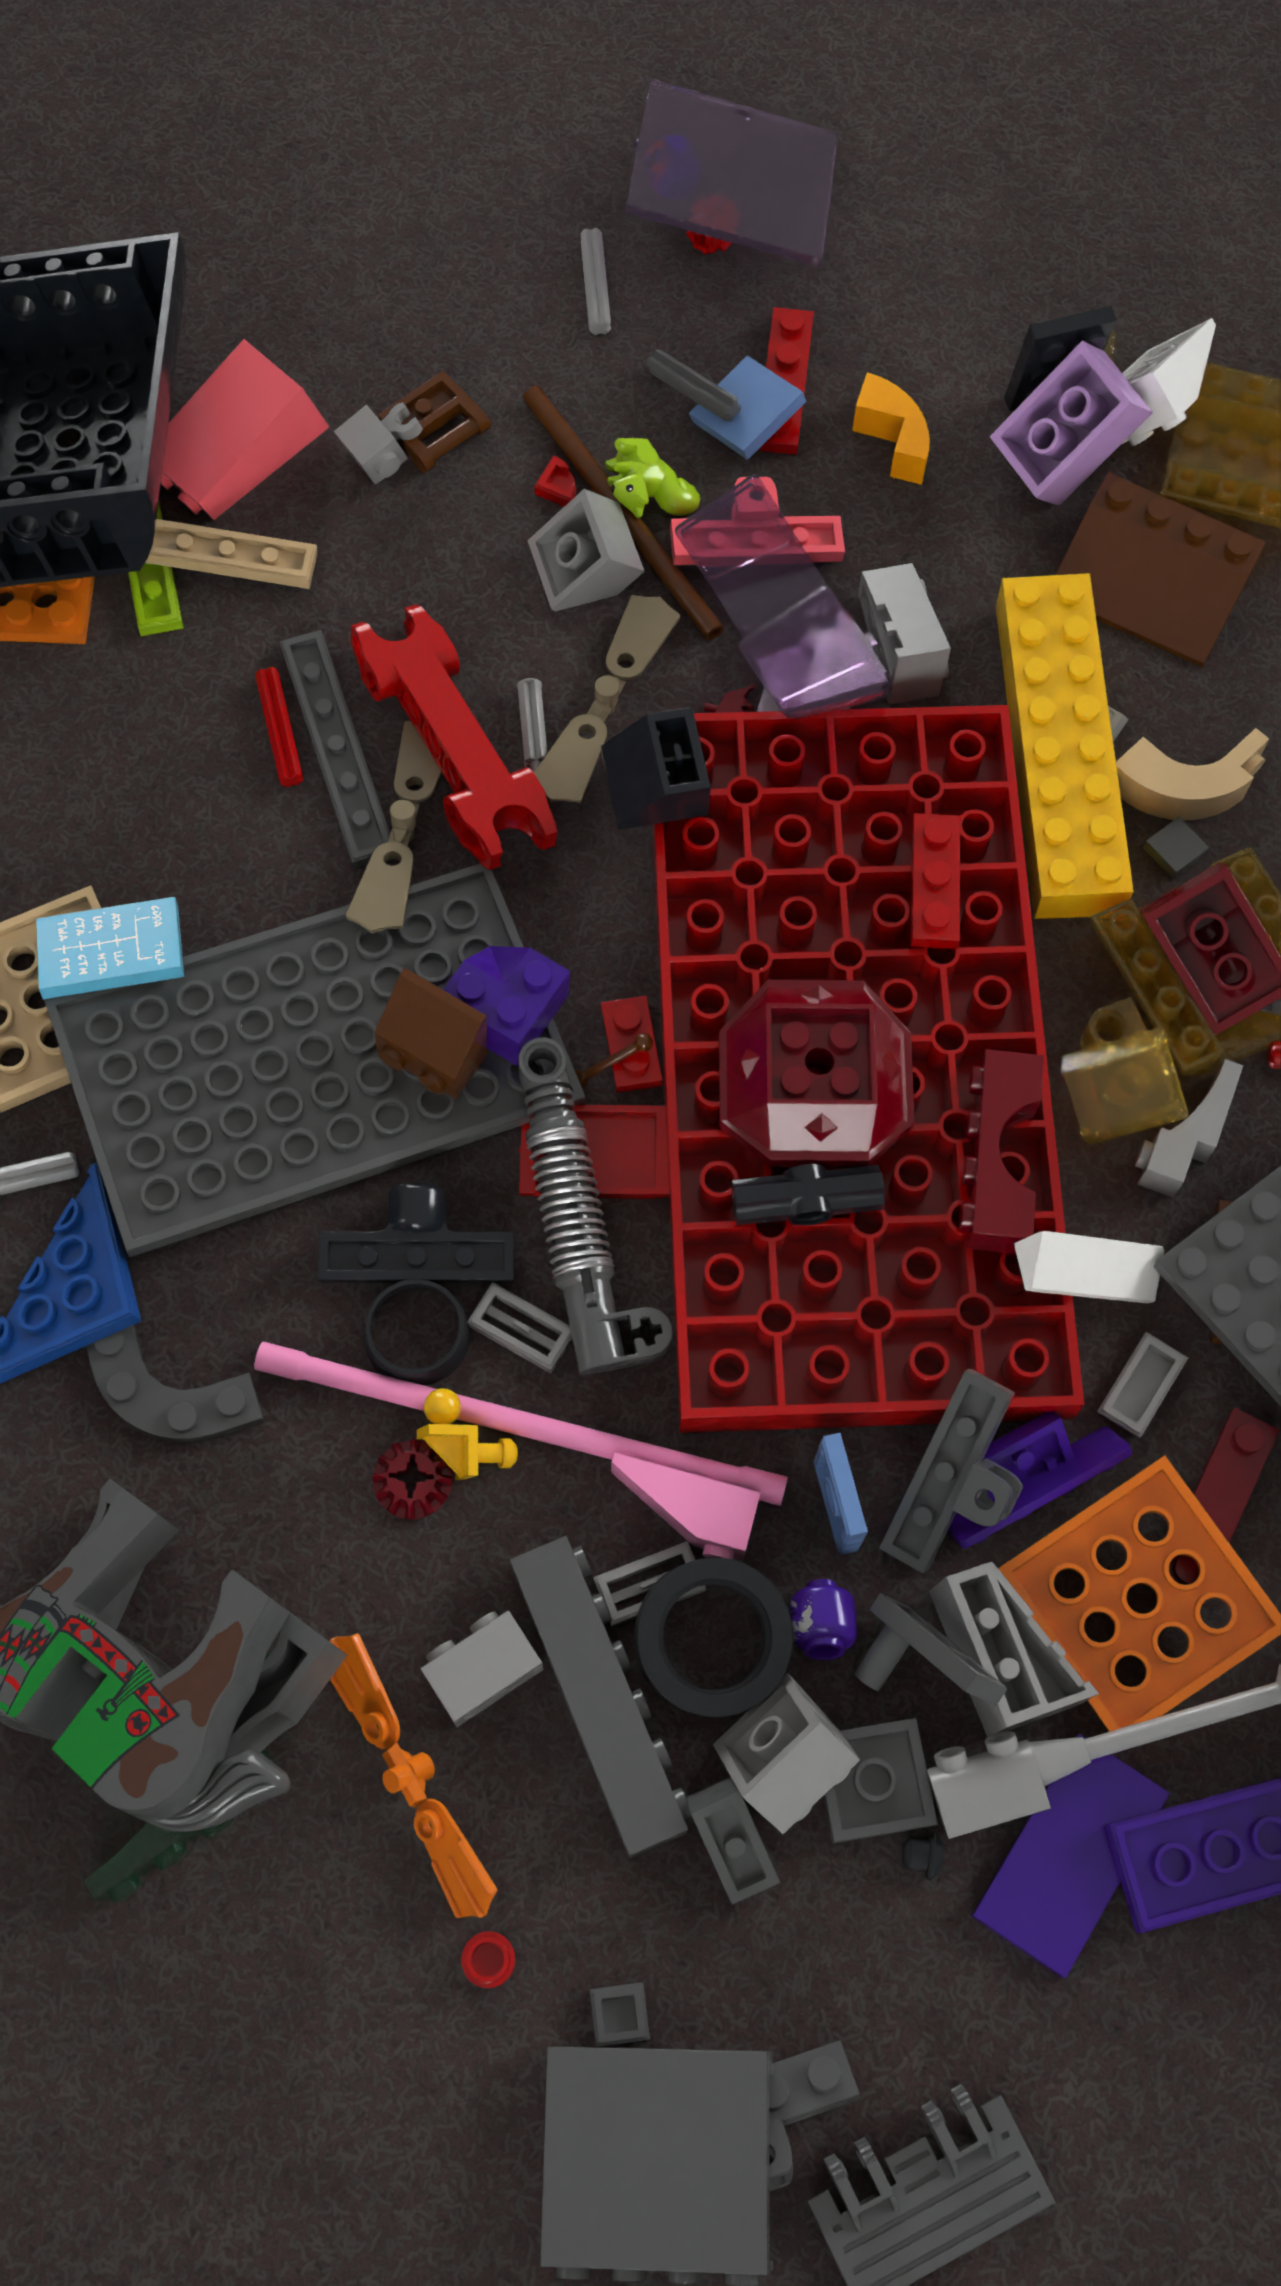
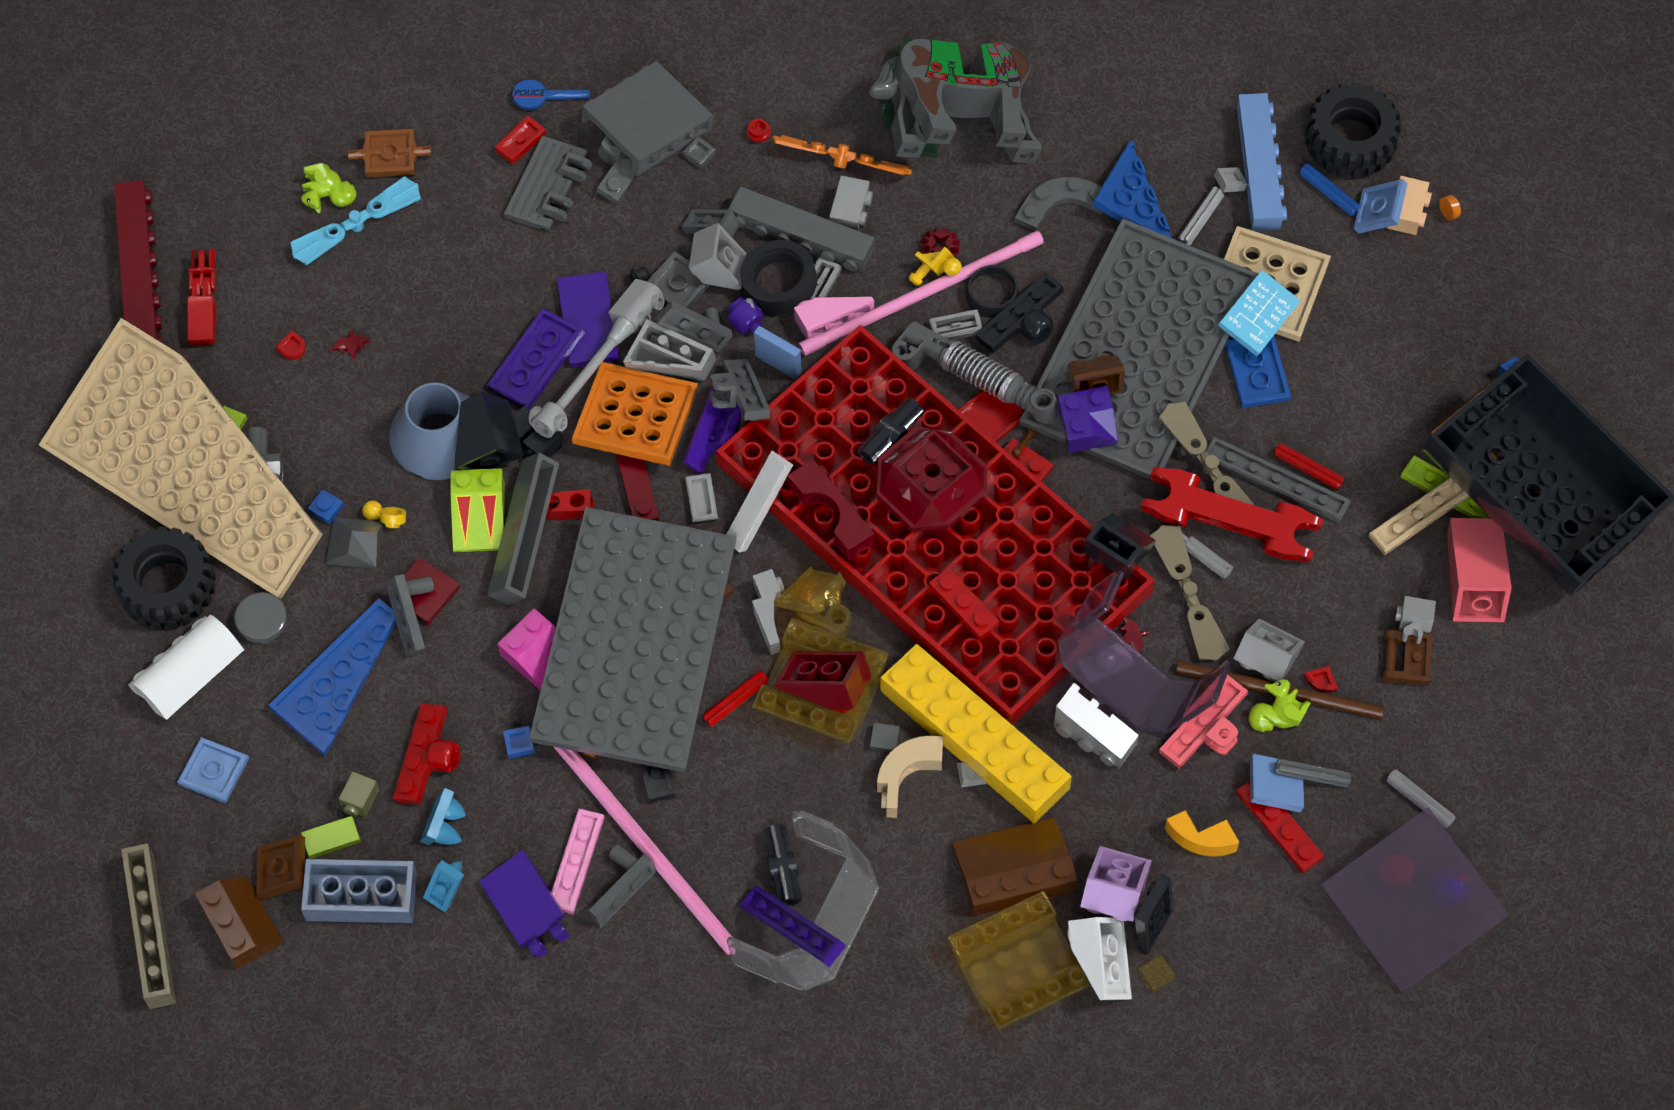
camera: 140 degrees right, 5 degrees down
(210, 889) = (1257, 378): none -> blue tile

